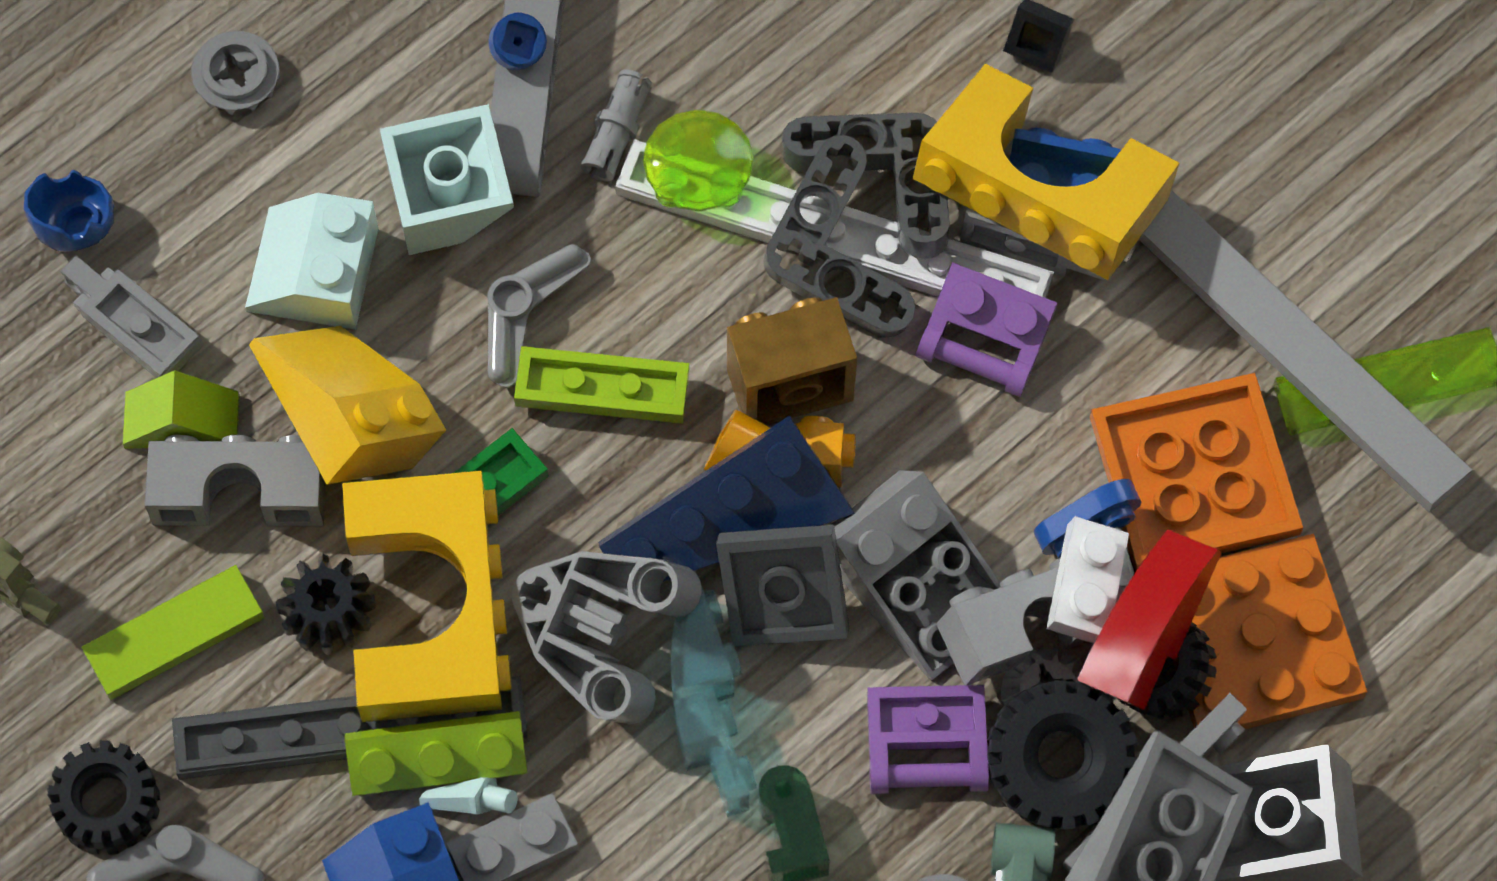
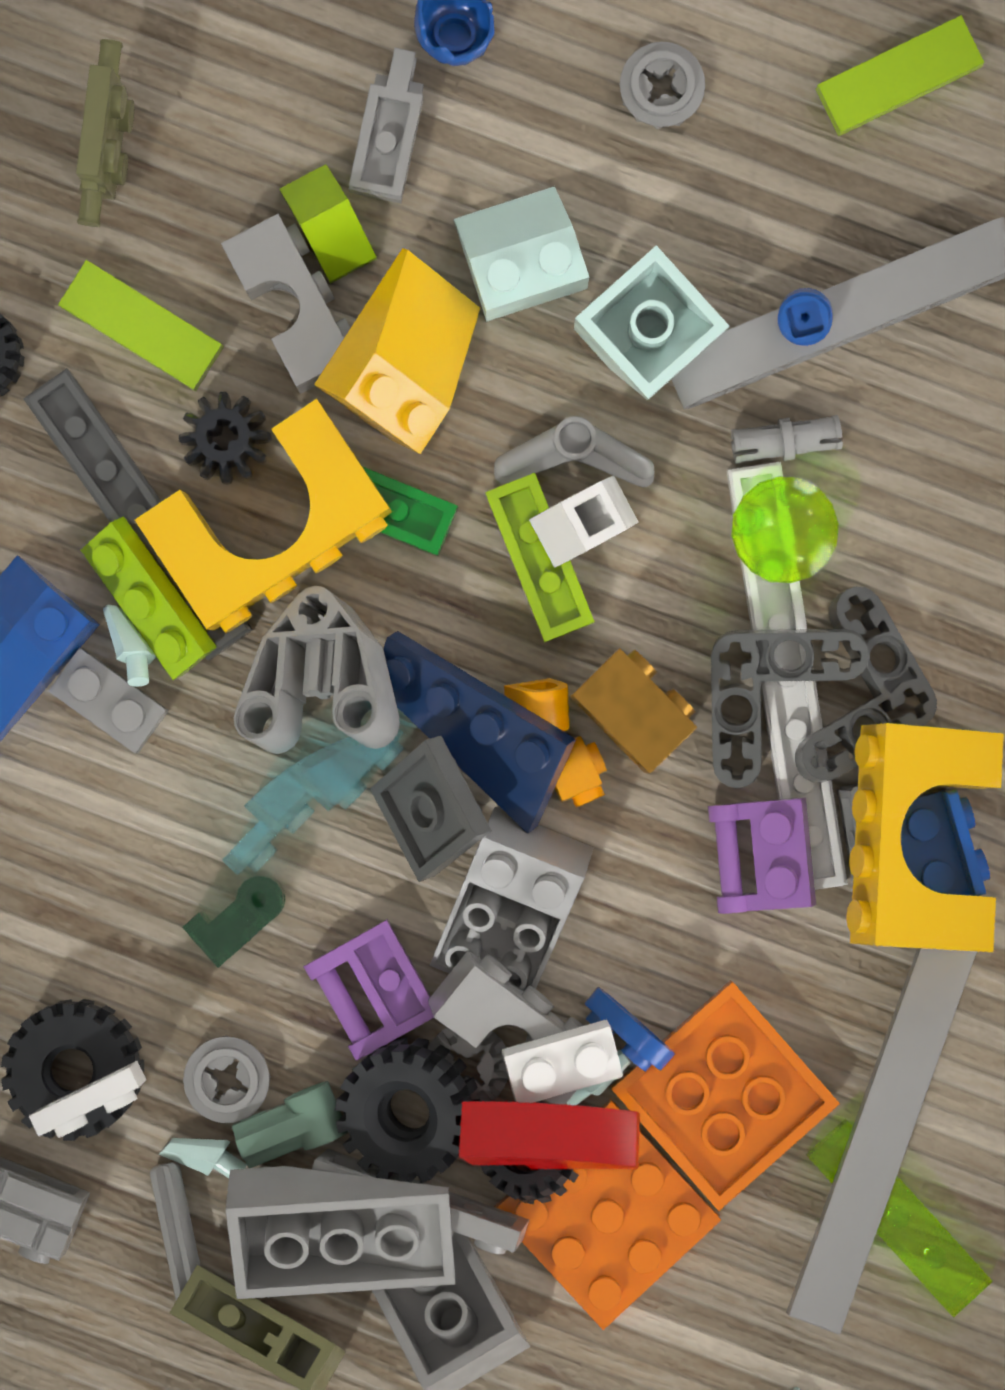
camera: 65 degrees right, 20 degrees up
(592, 319) = (583, 521): none -> white slope

